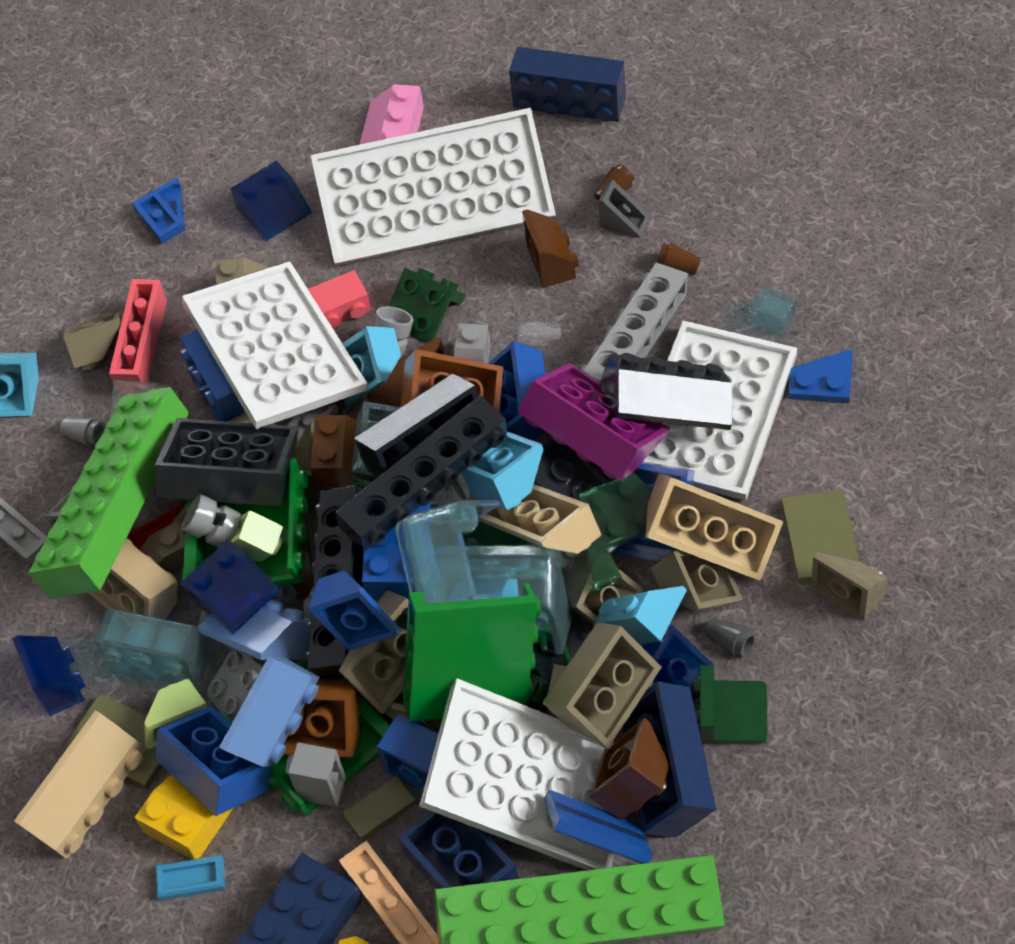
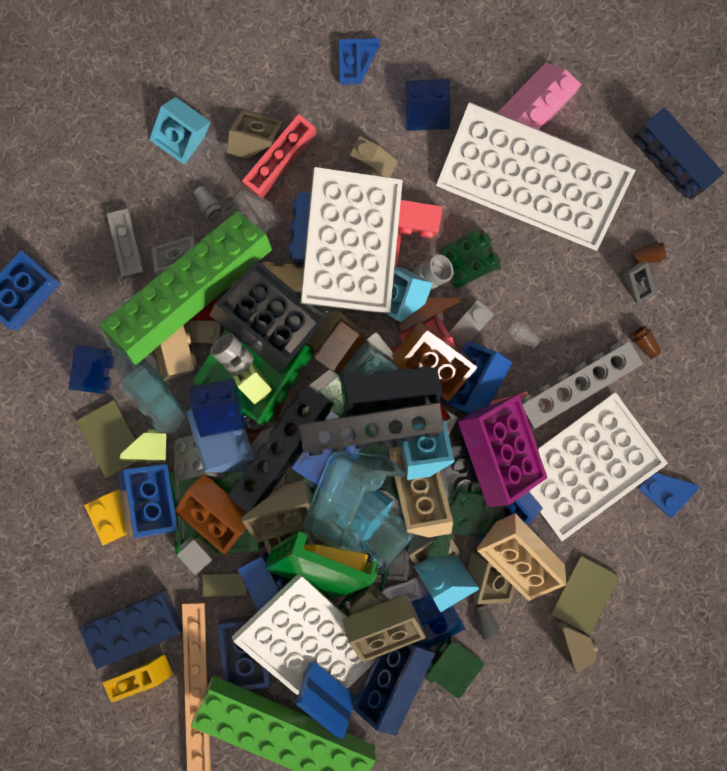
camera: 30 degrees right, 30 degrees up
(81, 785) = (67, 463): tan slope -> none
(190, 877) = (104, 555): dark azure tile -> none
(270, 712) = (187, 518): medium blue slope -> none
(350, 612) = (269, 494): blue slope -> none
(549, 249) = (573, 278): reddish brown slope -> none
(630, 771) = (366, 682): reddish brown slope -> none
(668, 391) = (561, 459): slope -> none
(772, 311) = (674, 424): clear light blue brick -> none

